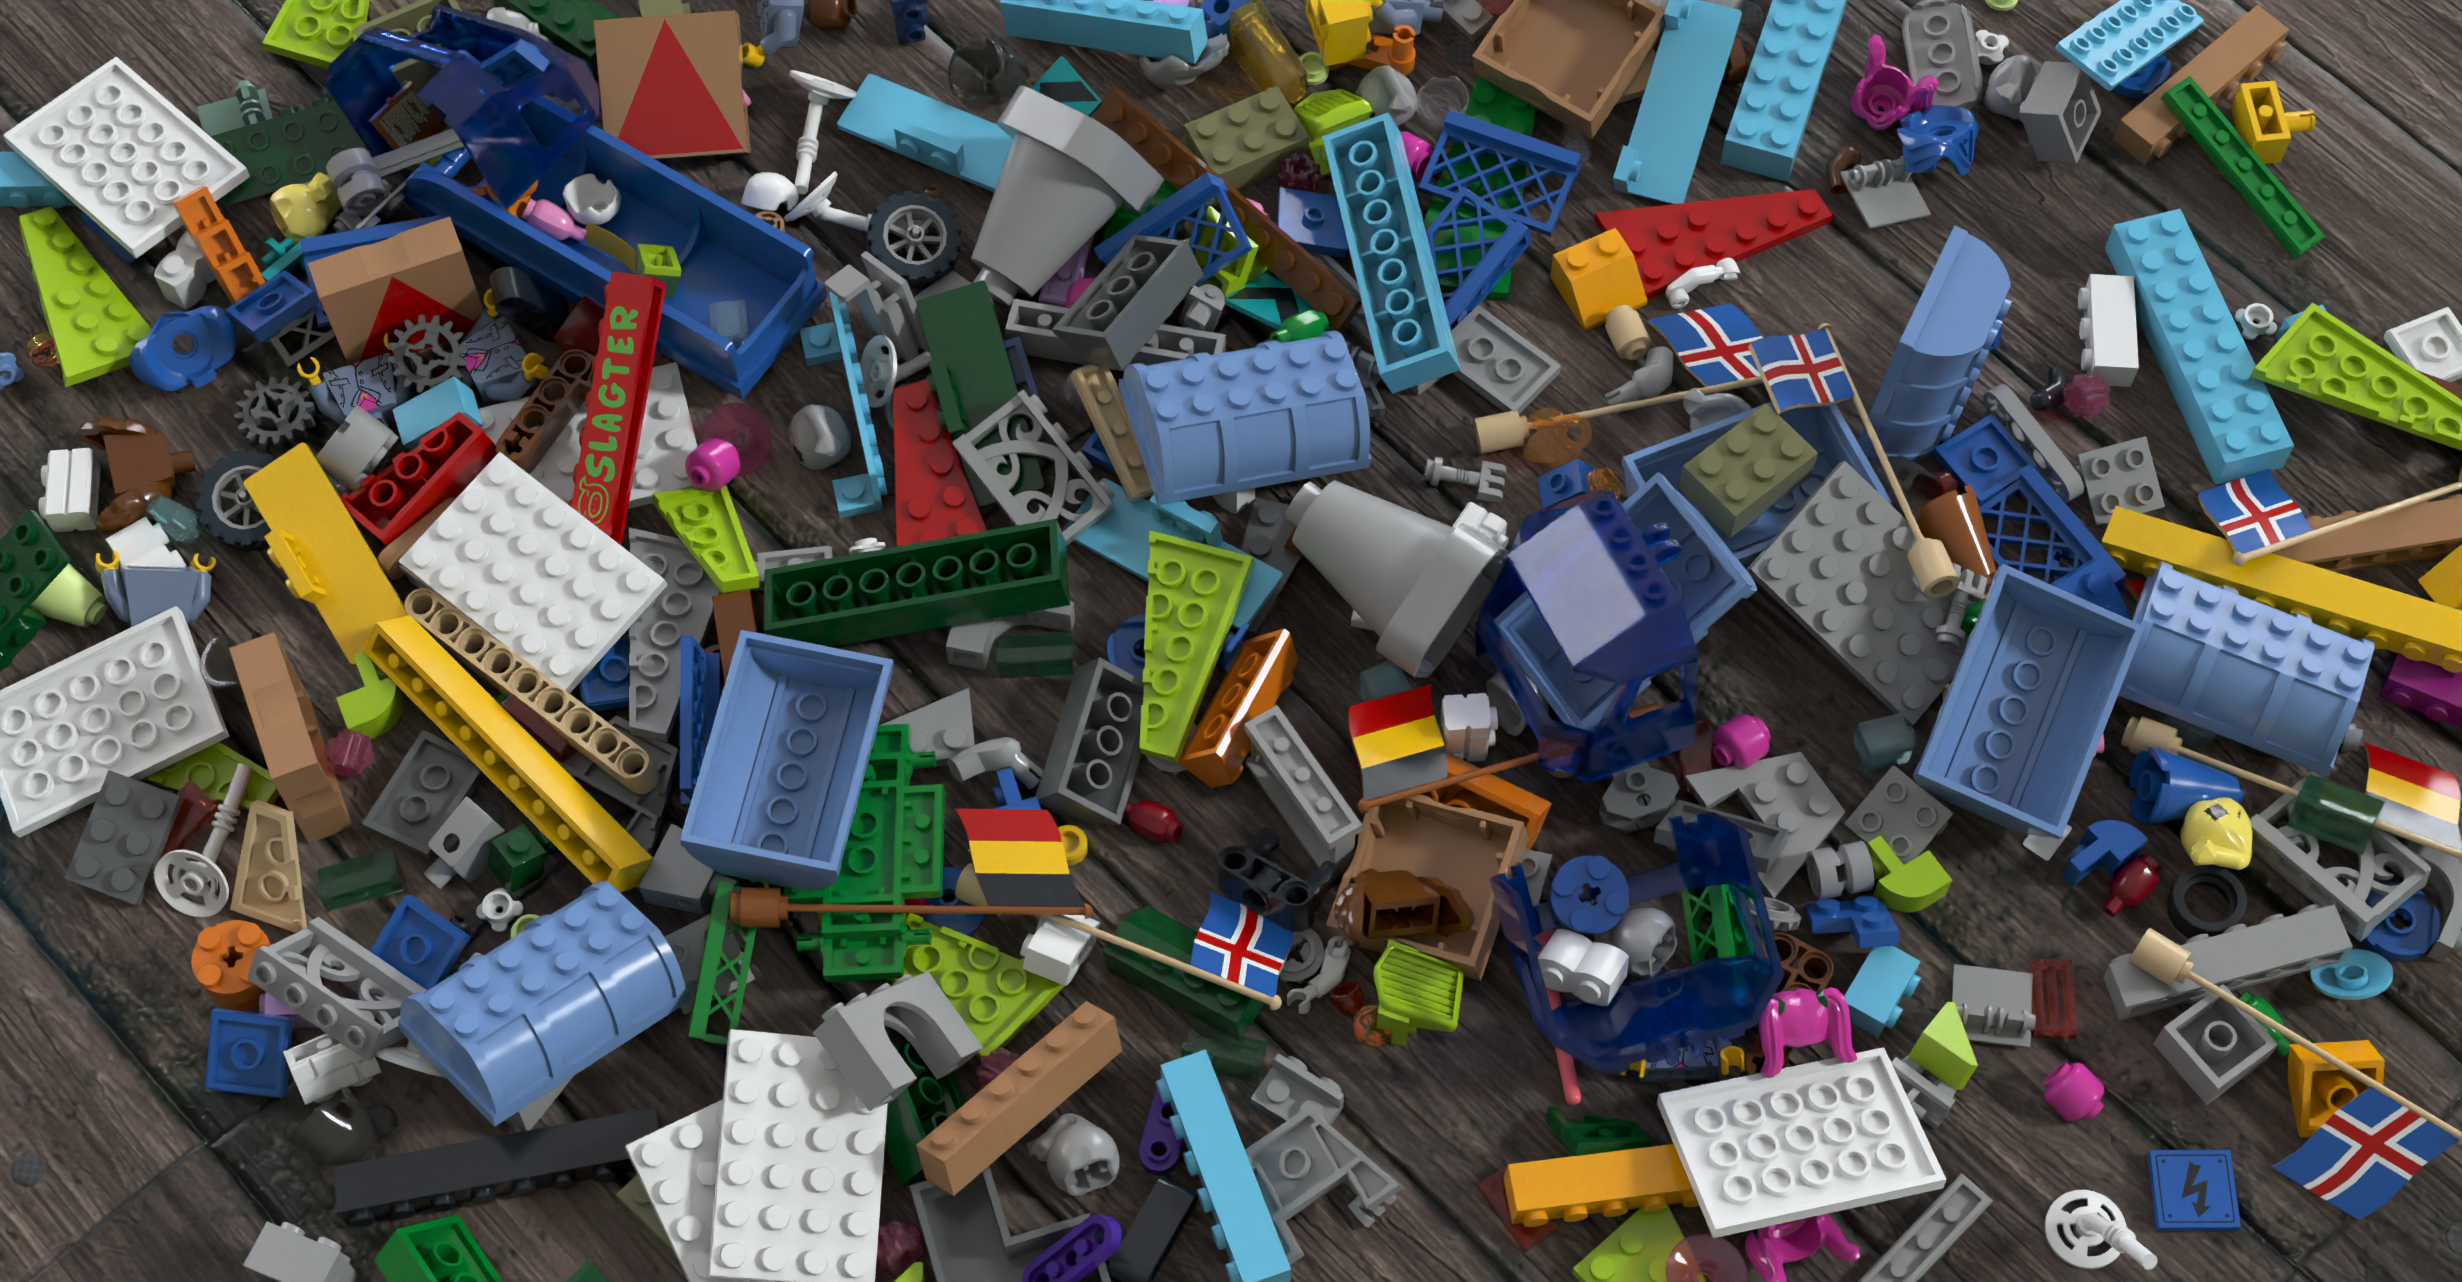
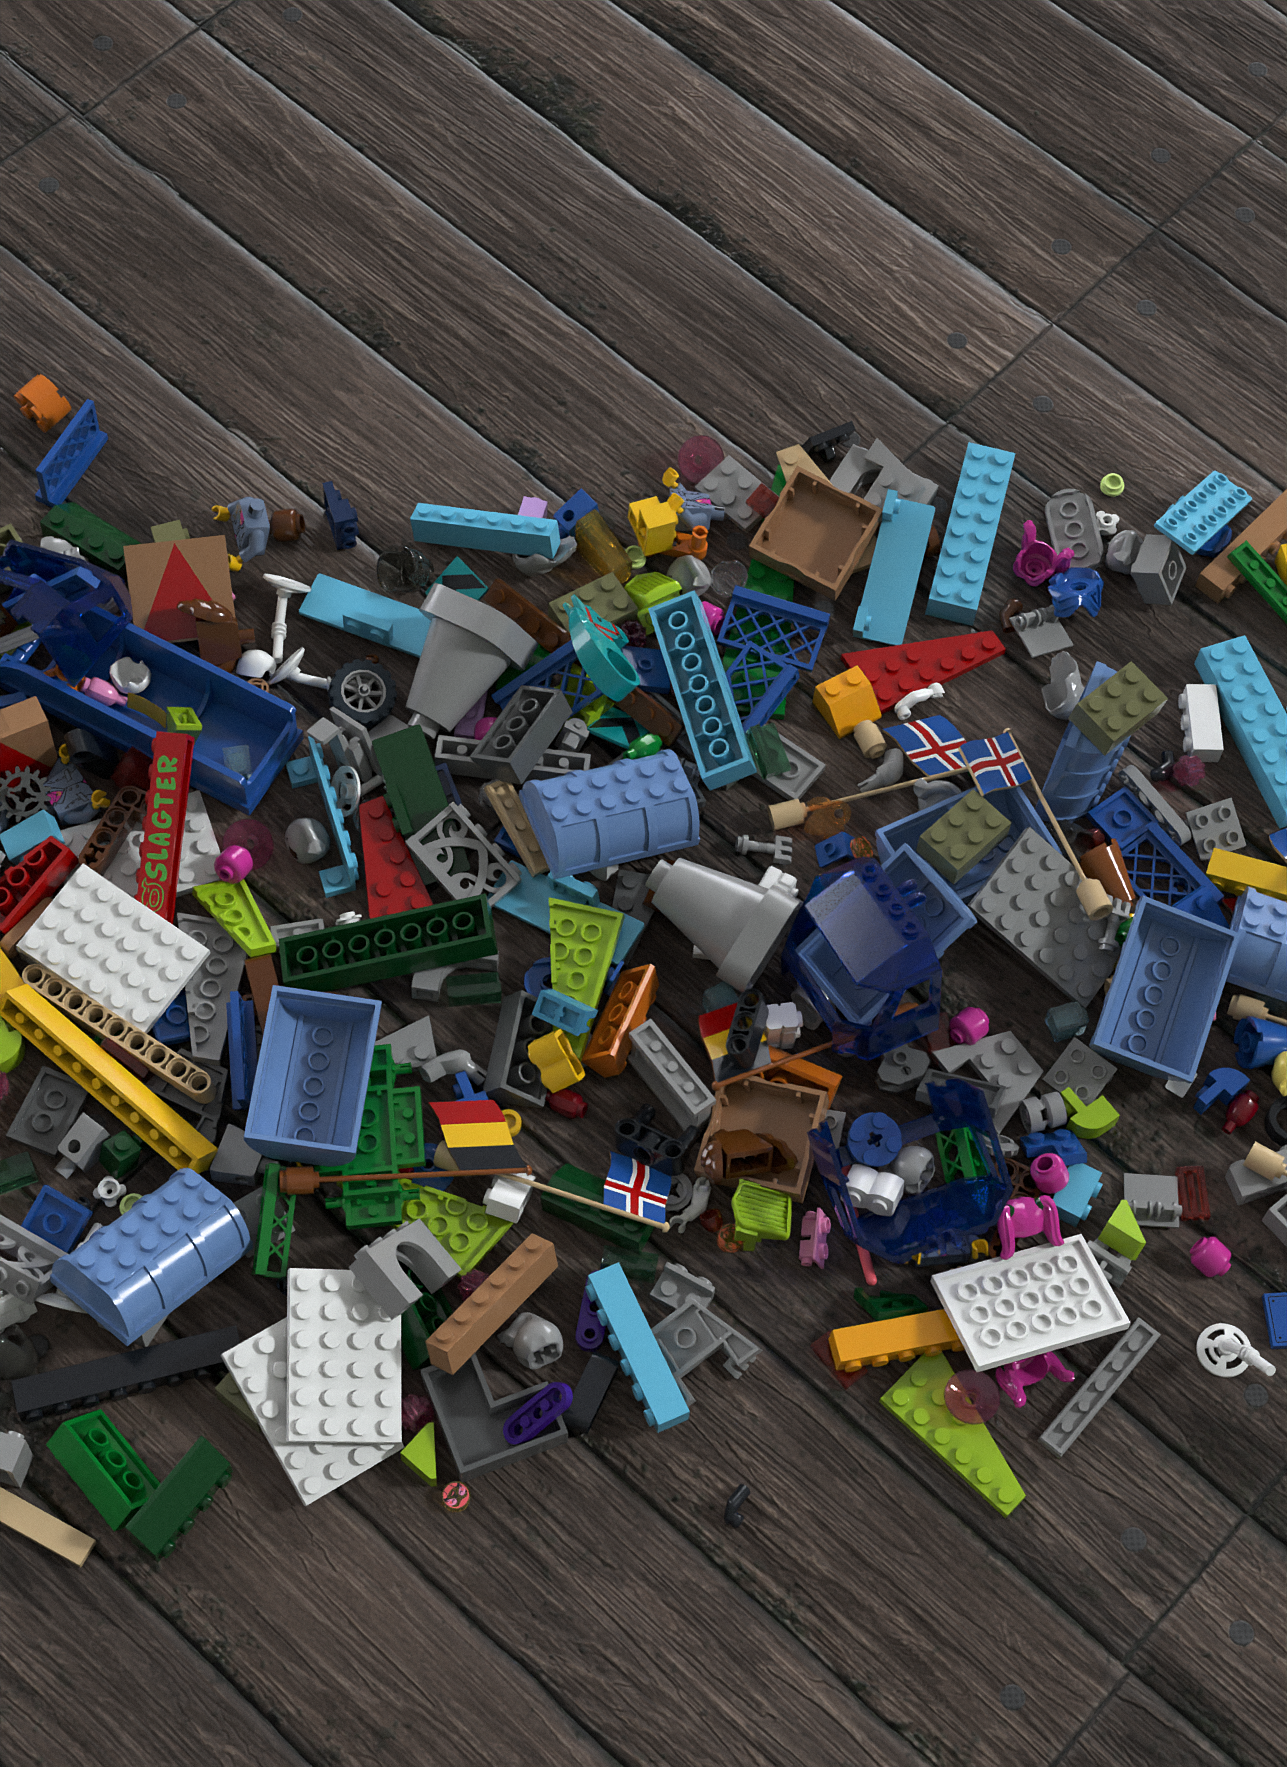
camera: 10 degrees left, 0 degrees up
(718, 146) = (217, 633): none -> reddish brown torso
(1140, 759) = (556, 1061): none -> yellow brick
(1156, 690) = (563, 1011): none -> dark azure hinge
(1248, 190) = (599, 650): none -> teal animal
(1415, 726) = (747, 1028): none -> black beam
(1479, 340) = (768, 750): none -> clear green panel
(1495, 1049) = (817, 1229): none -> bright pink hinge
(1842, 957) = (1049, 1173): none -> dark pink head
(1911, 270) = (1065, 686): none -> light grey hair
(1979, 292) = (1117, 708): none -> olive brick

